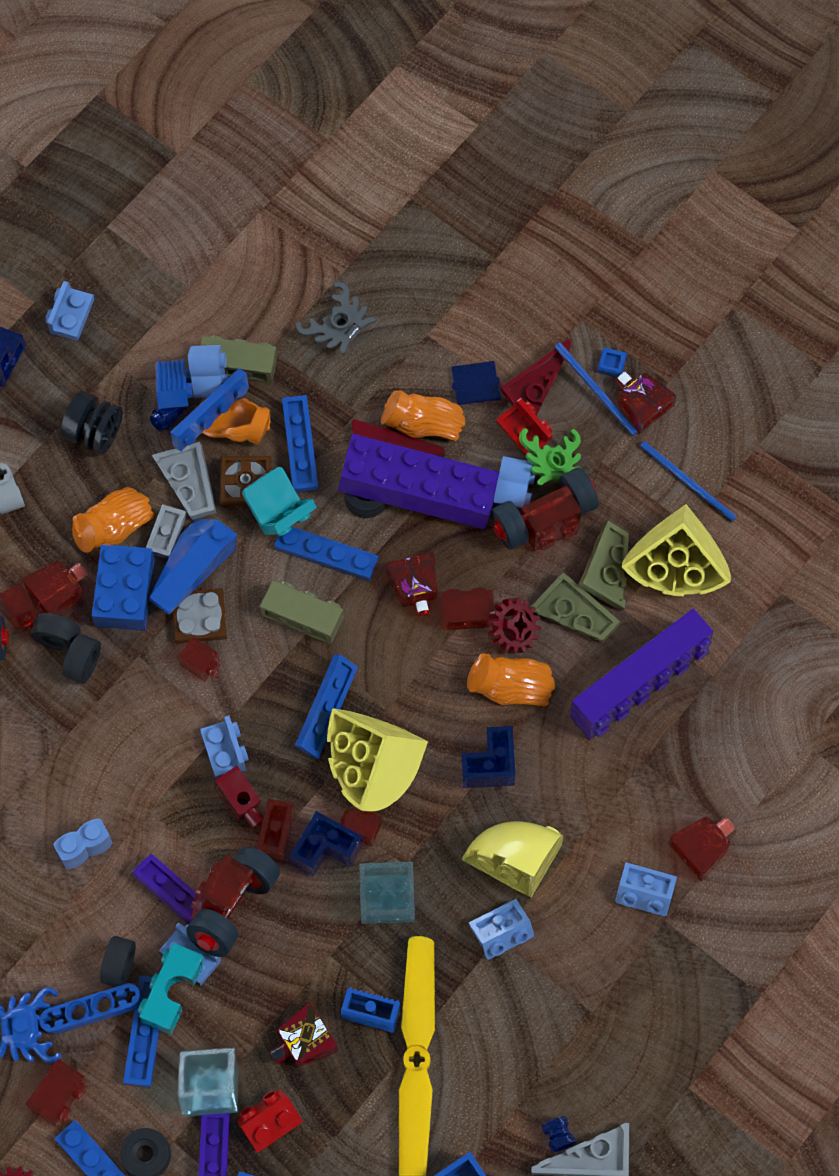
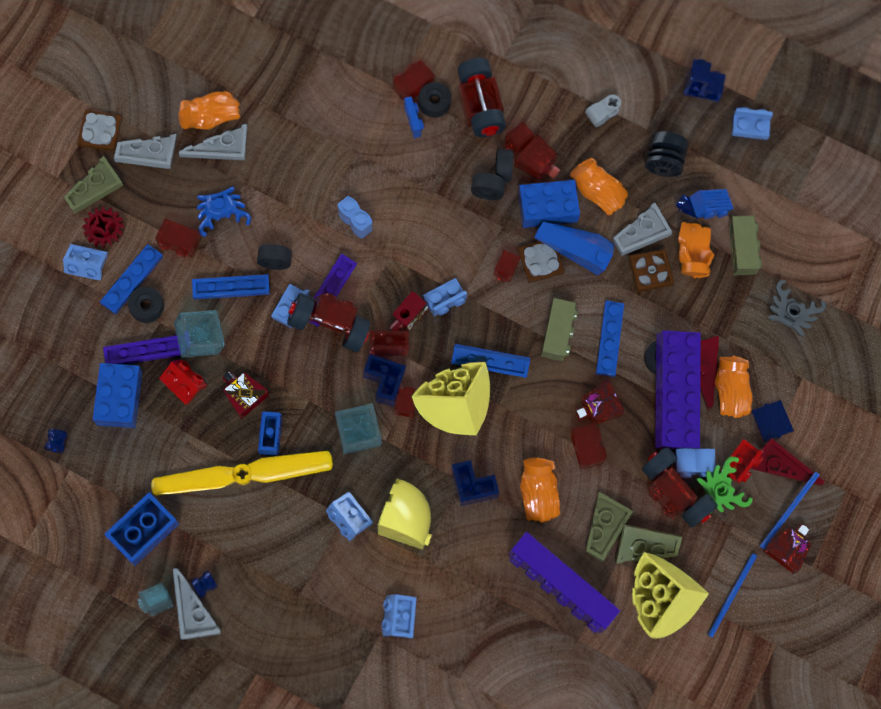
camera: 70 degrees right, 5 degrees up
(90, 1005) = (242, 246): blue beam -> none
(166, 531) = (598, 224): light grey plate -> none
(178, 966) = (244, 289): teal arch -> none
(207, 369) = (726, 223): medium blue brick -> none
(210, 409) = (696, 231): blue plate -> none
(276, 503) = (637, 293): teal bracket -> none
(300, 443) = (689, 302): blue plate -> none
(514, 625) = (581, 489): dark red gear -> none
(611, 362) = (816, 519): blue tile -> none
(702, 844) = (441, 653): clear red torso -> none

